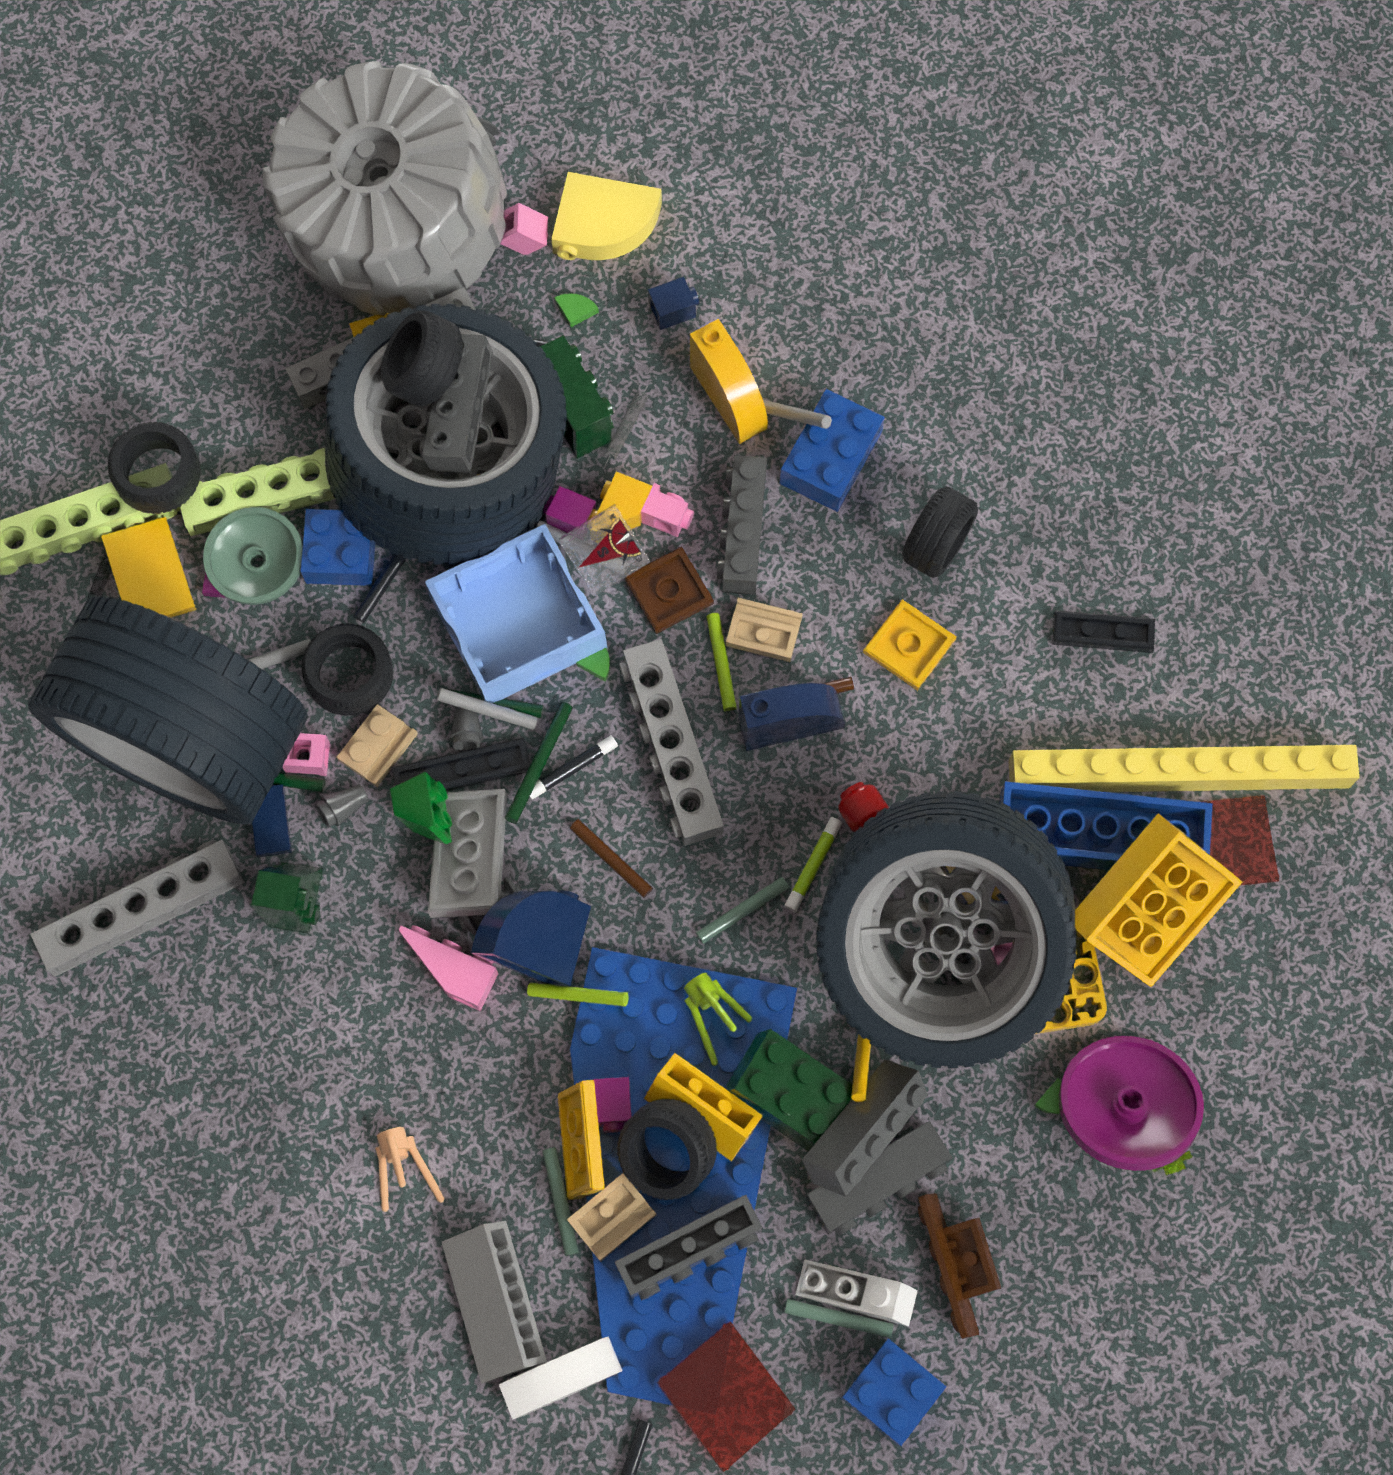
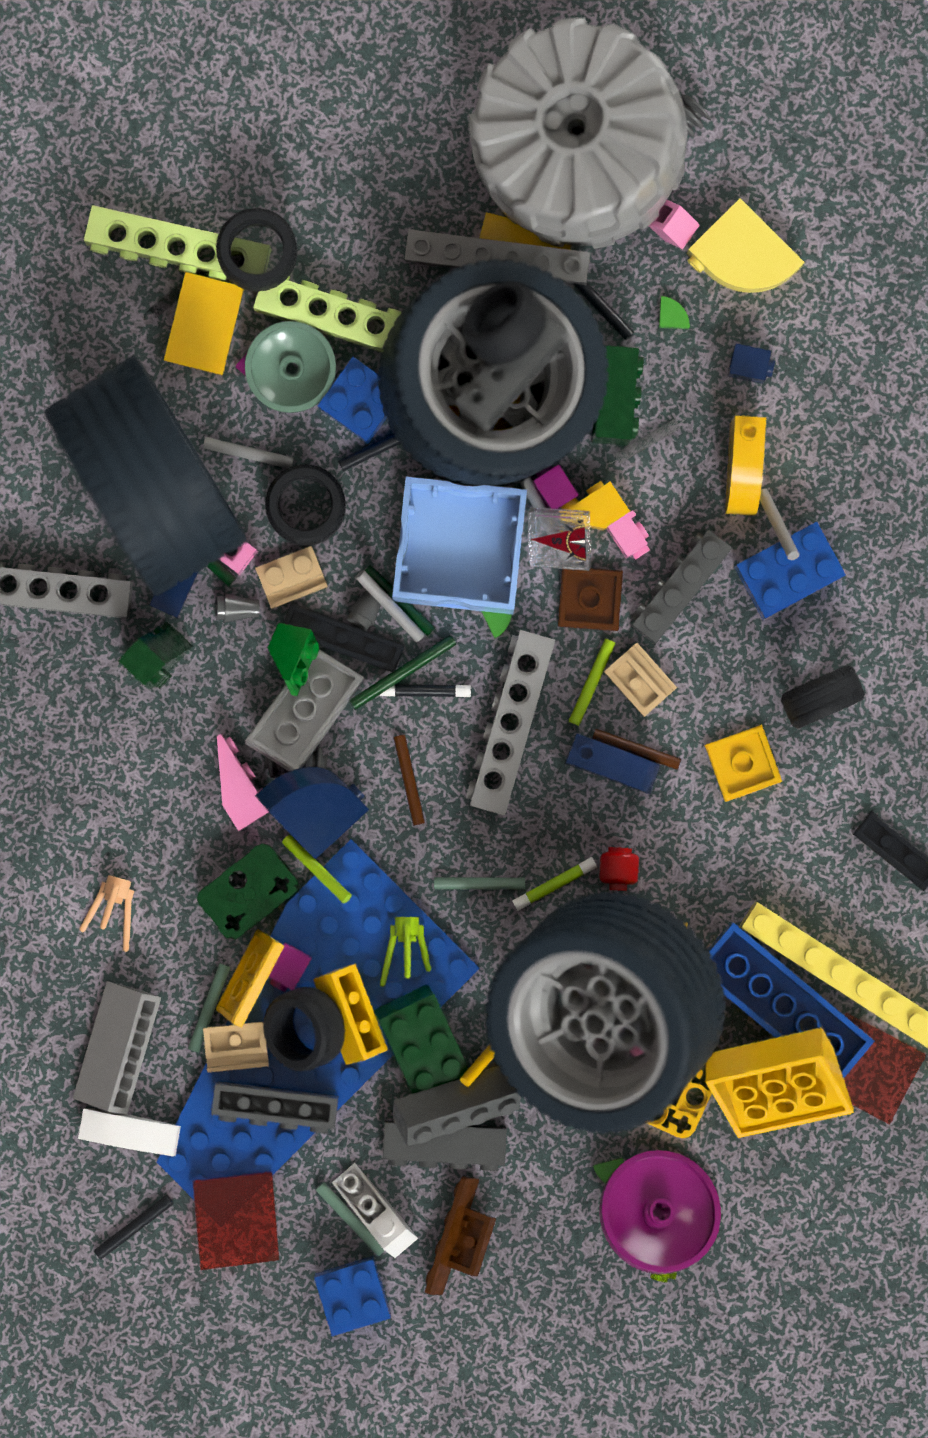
camera: 30 degrees right, 15 degrees up
(536, 1061) = (261, 867): none -> dark green axle

